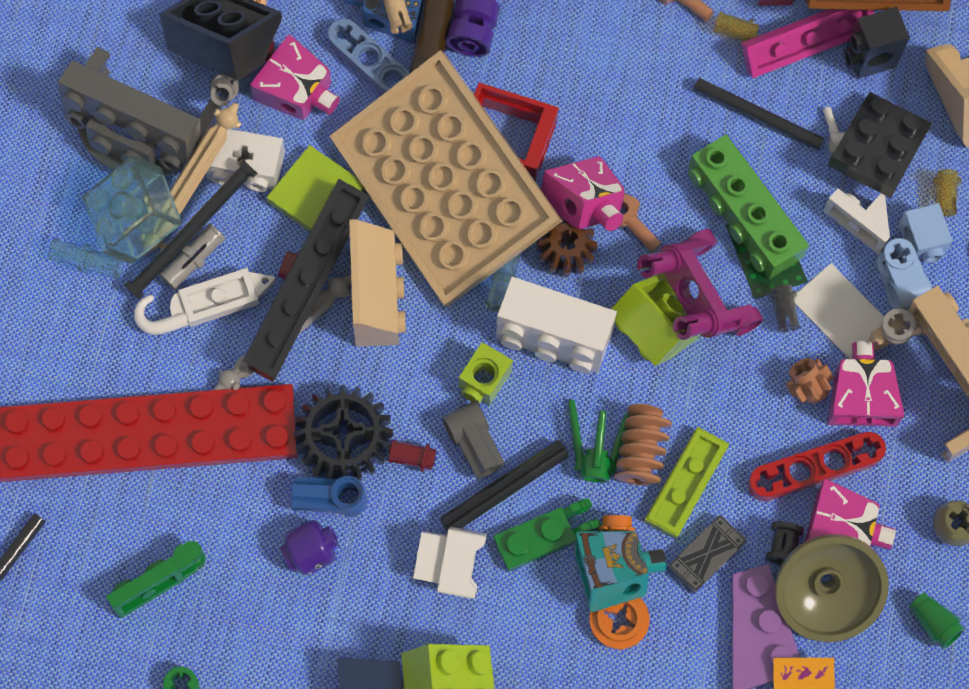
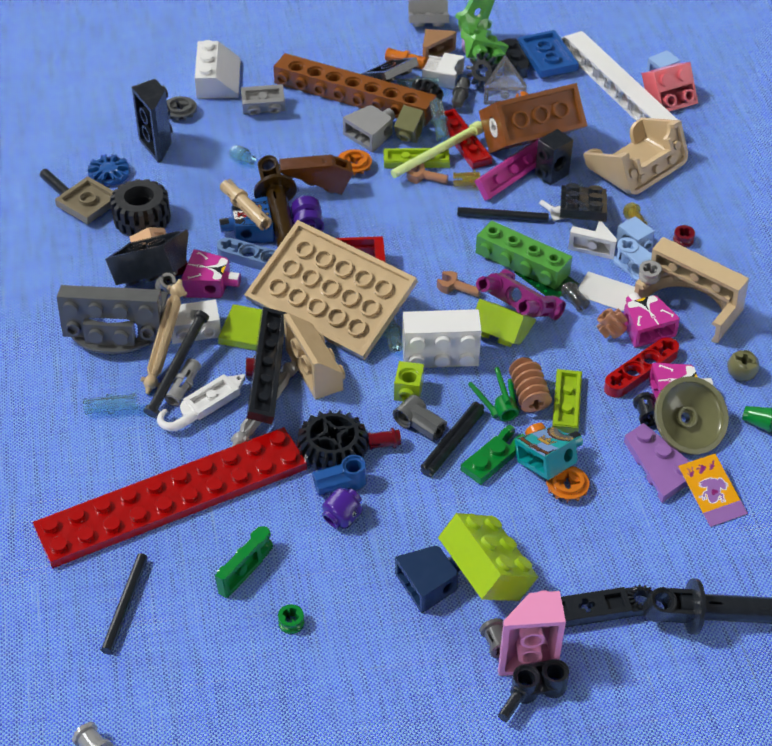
camera: 20 degrees left, 25 degrees down
(131, 209) = (133, 360): clear light blue brick -> none
(449, 560) = (441, 483): white piece -> none
(566, 259) = (424, 300): reddish brown gear -> none
(585, 193) = (433, 268): dark pink torso -> none
(707, 554) = (602, 432): tile -> none

